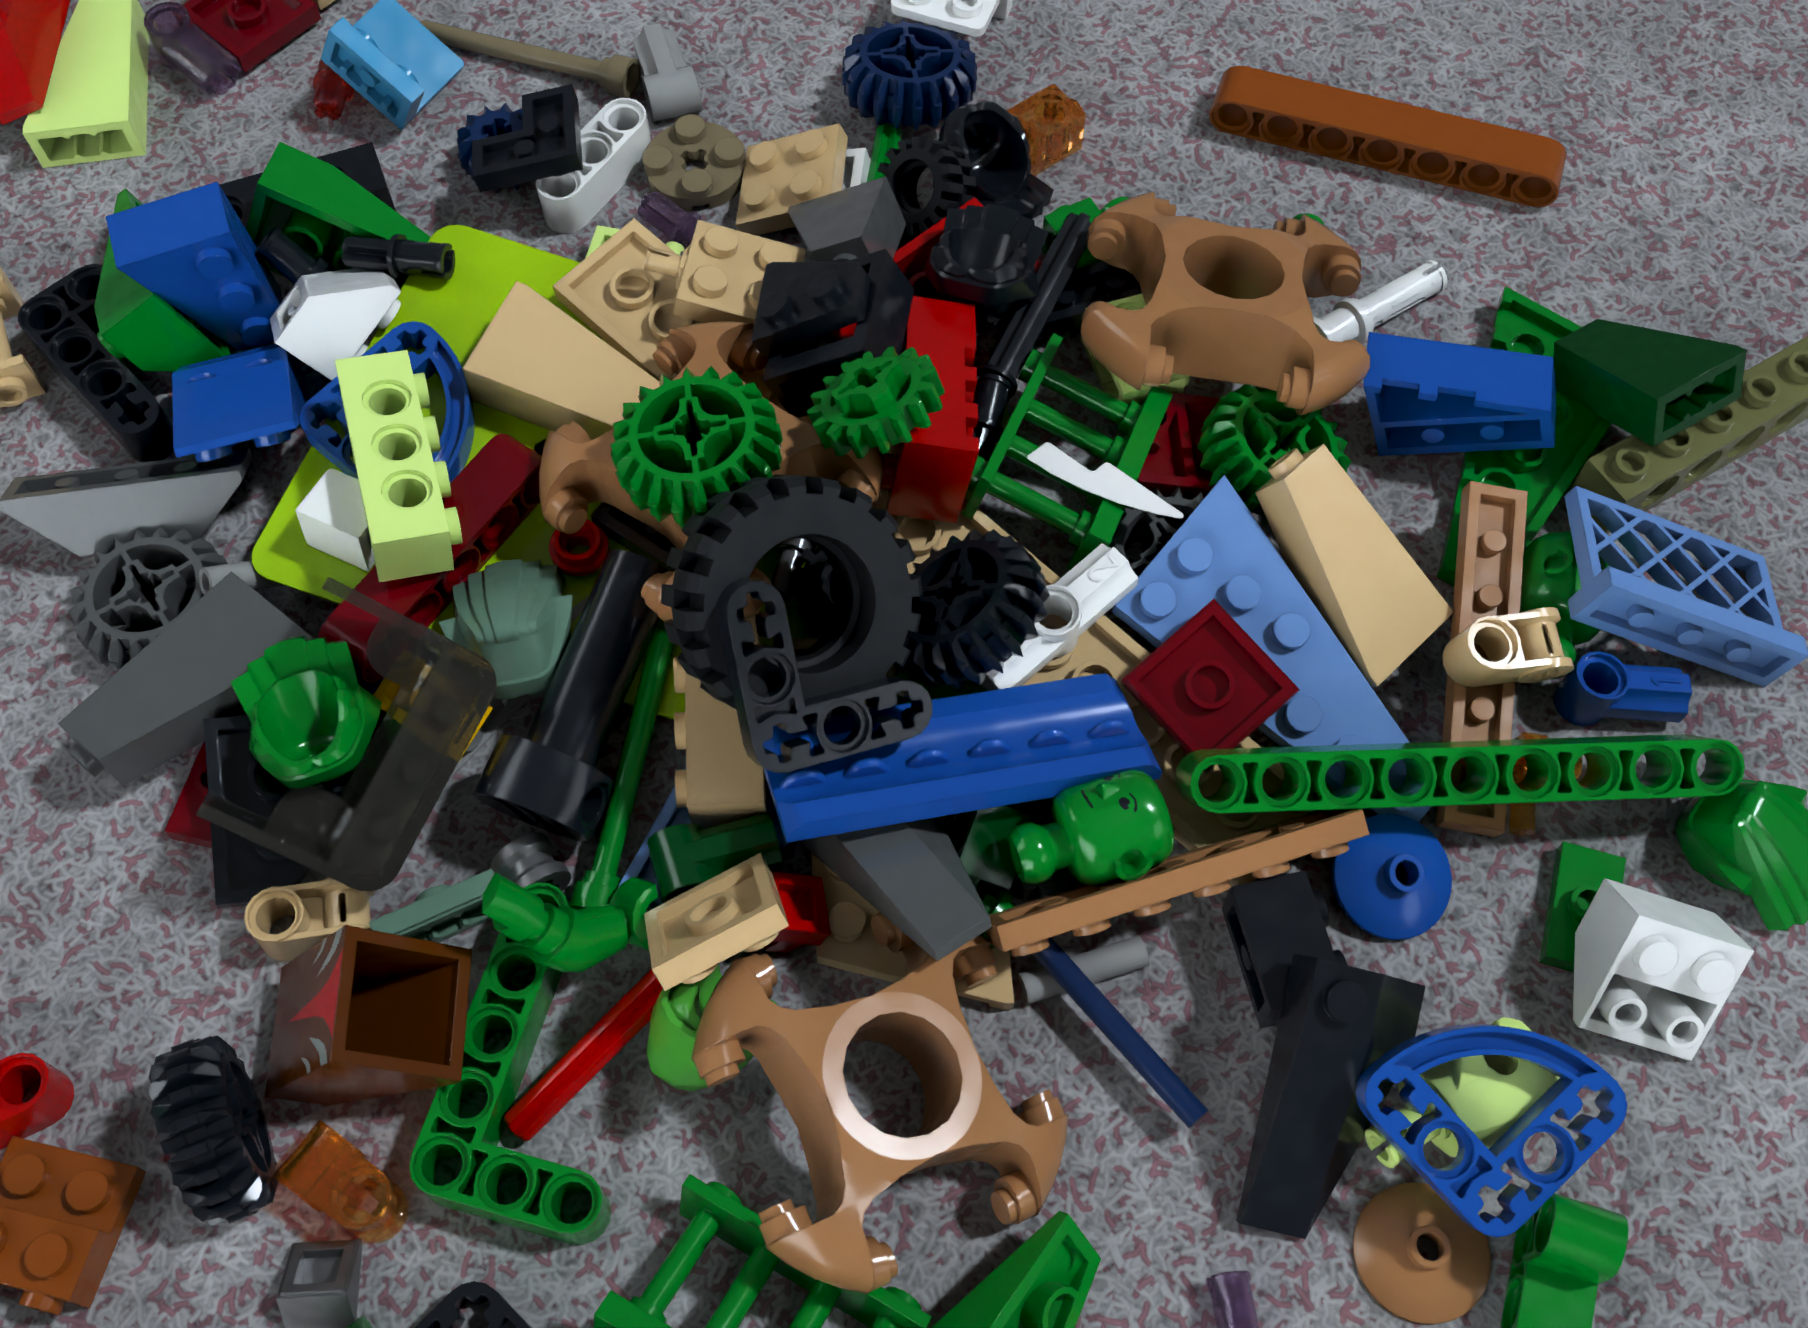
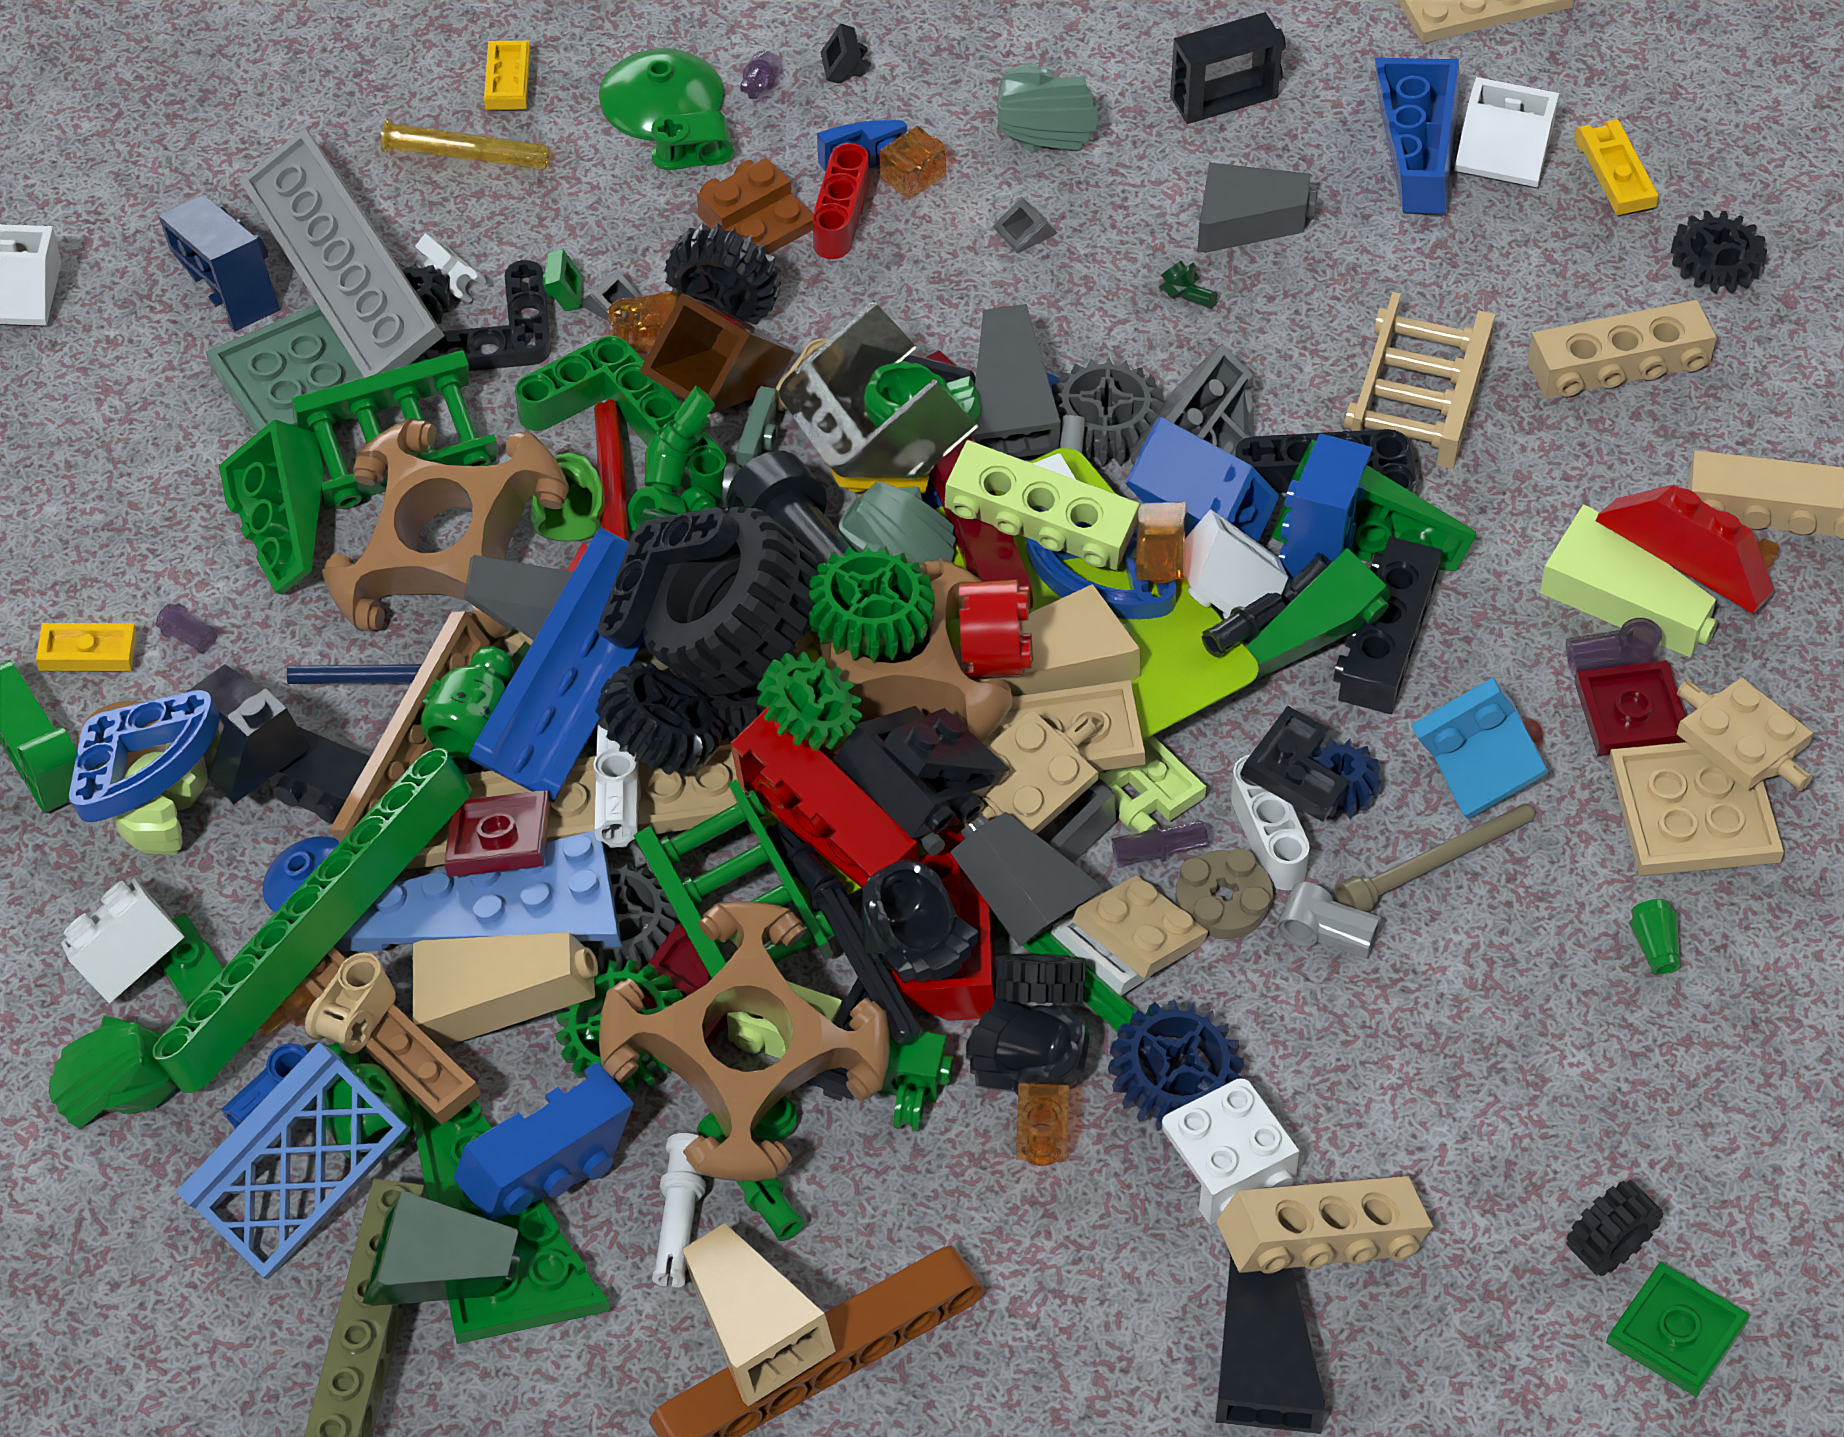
camera: 130 degrees right, 10 degrees down
(368, 330) = (1161, 542): none -> clear orange slope
(611, 352) = (994, 630): none -> red brick
(714, 922) = (599, 490): tan plate -> none
(1104, 482) = (680, 871): white sticker -> none
(1428, 147) = (756, 1314): none -> tan slope

